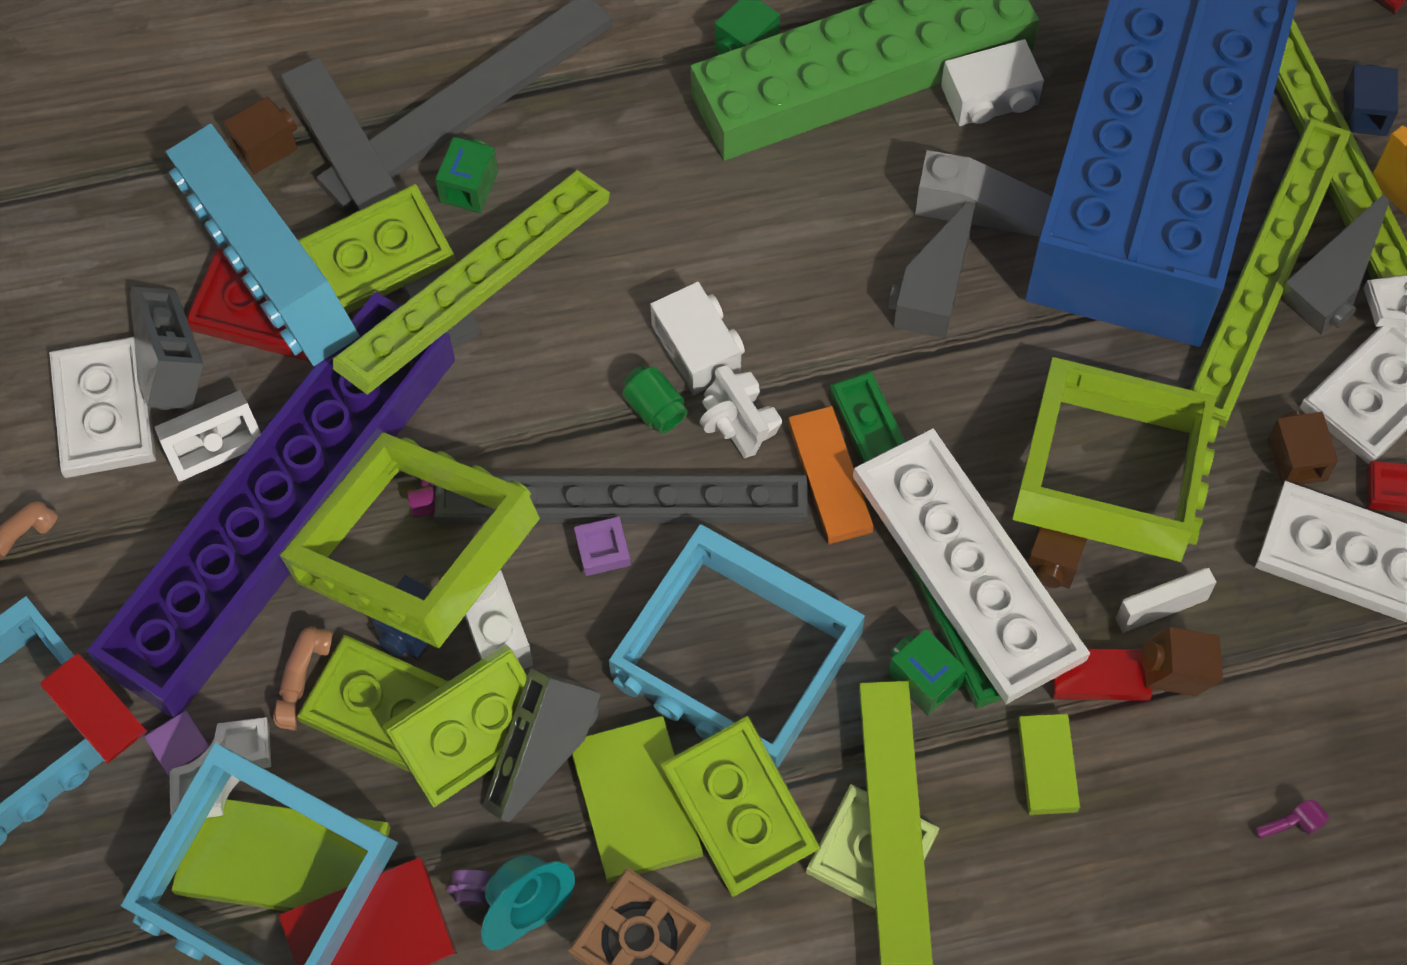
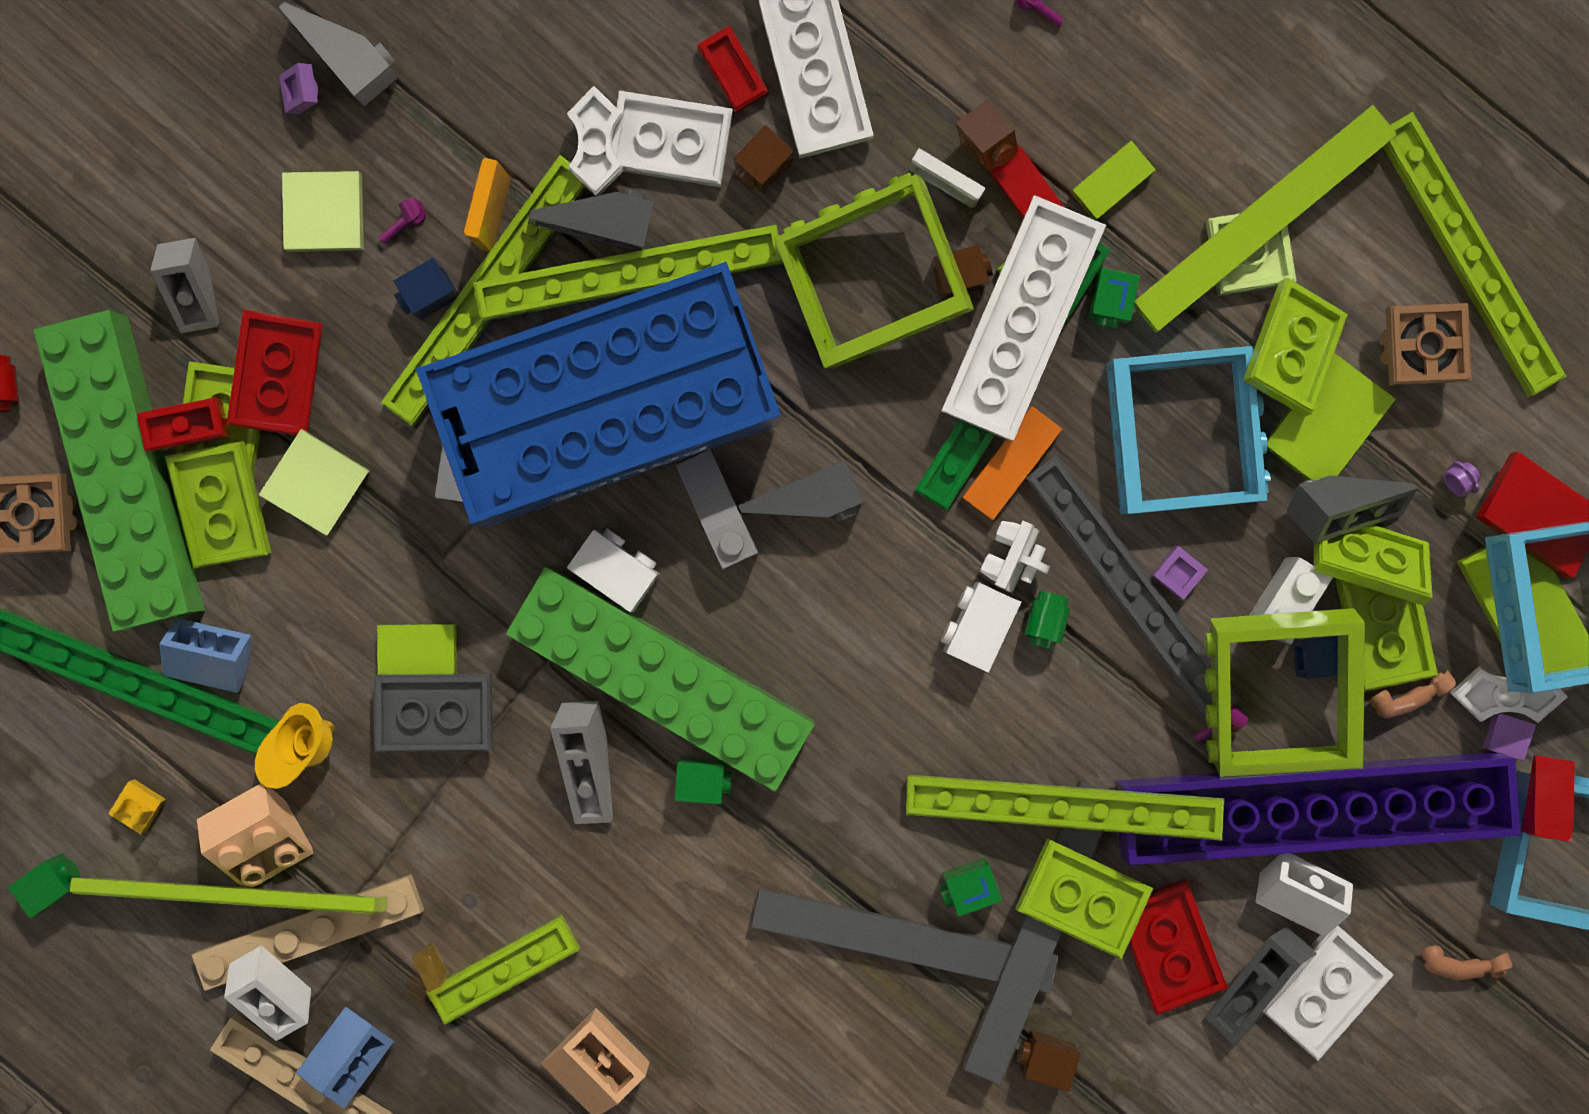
camera: 130 degrees left, 25 degrees up
(261, 246) = (1160, 973): medium azure brick -> none
(524, 897) = (1450, 442): teal piece -> none

